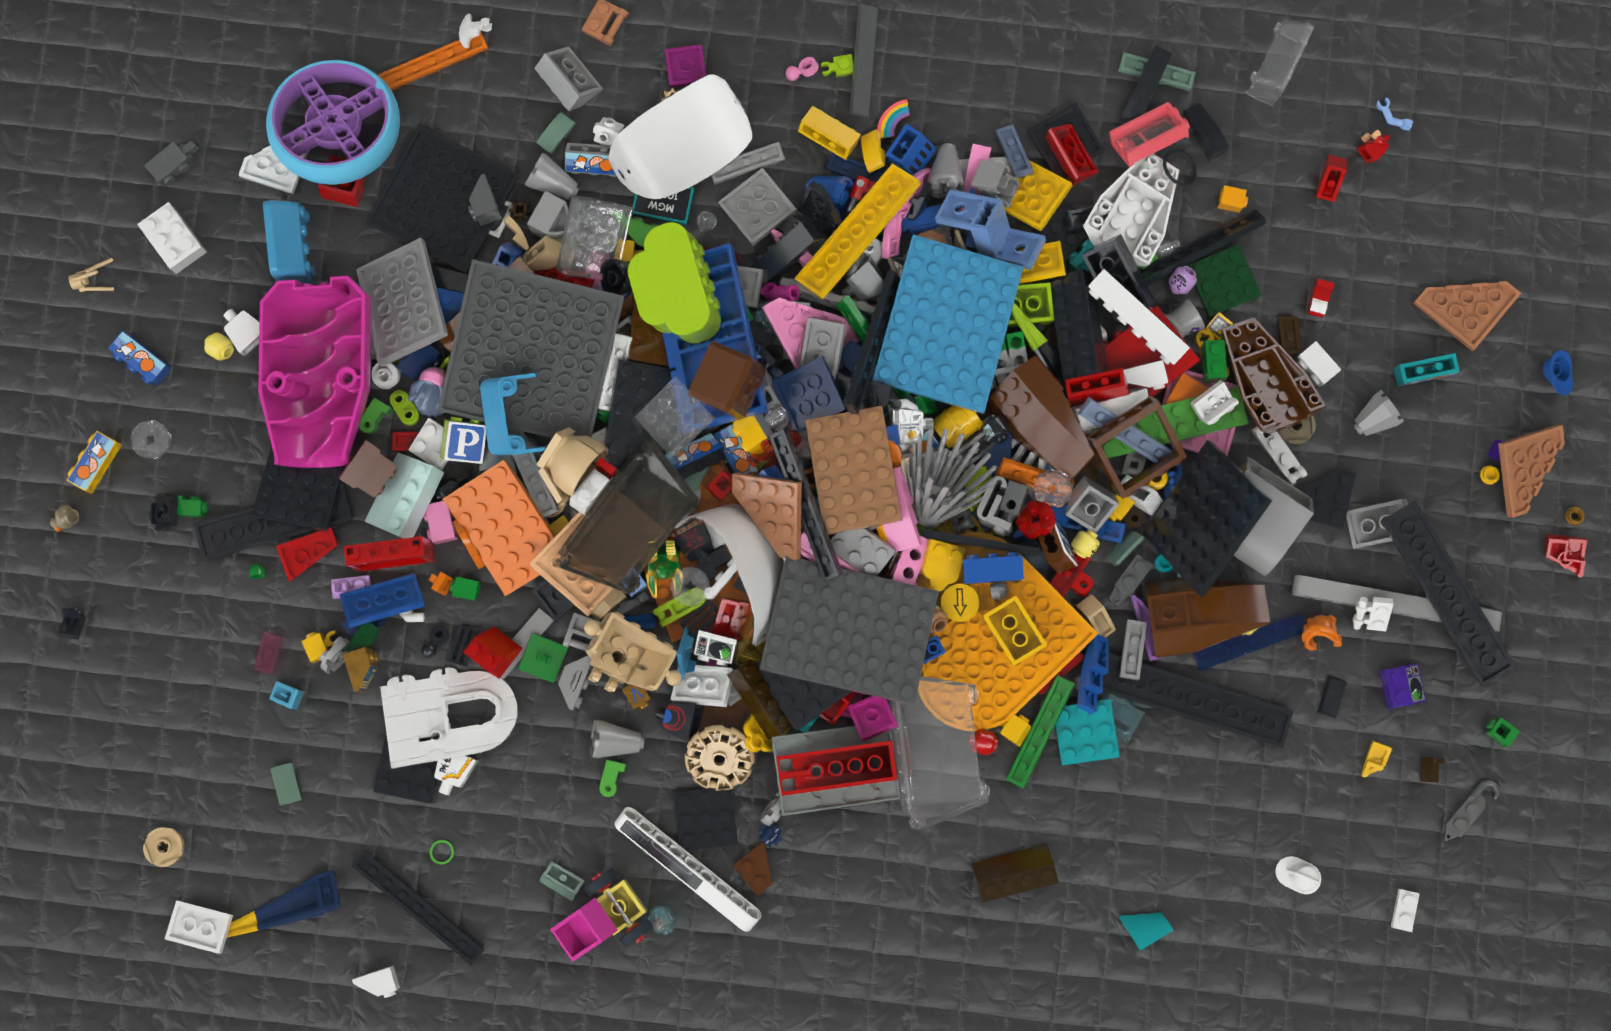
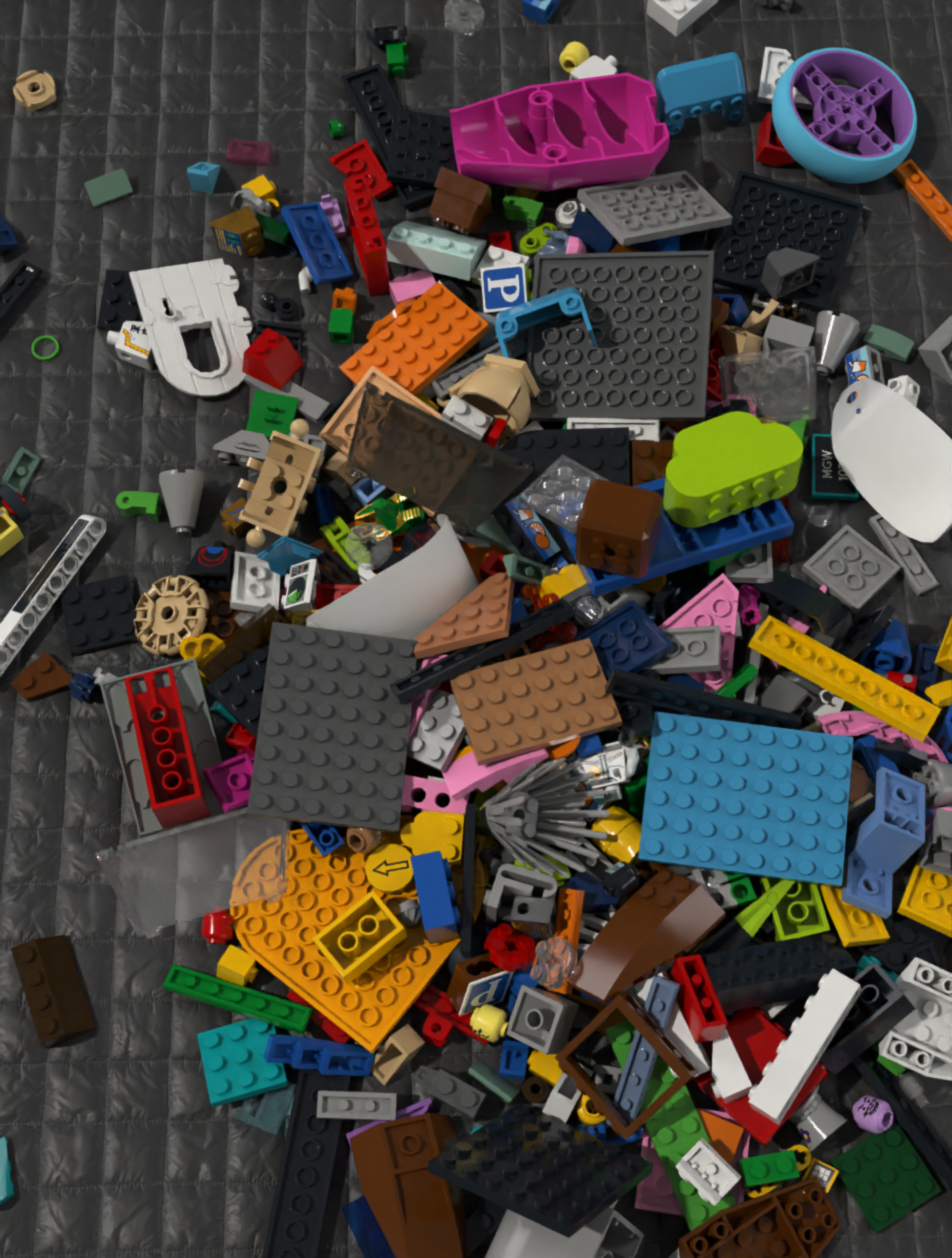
camera: 85 degrees right, 15 degrees down
(731, 462) = (525, 569): none -> sand green slope

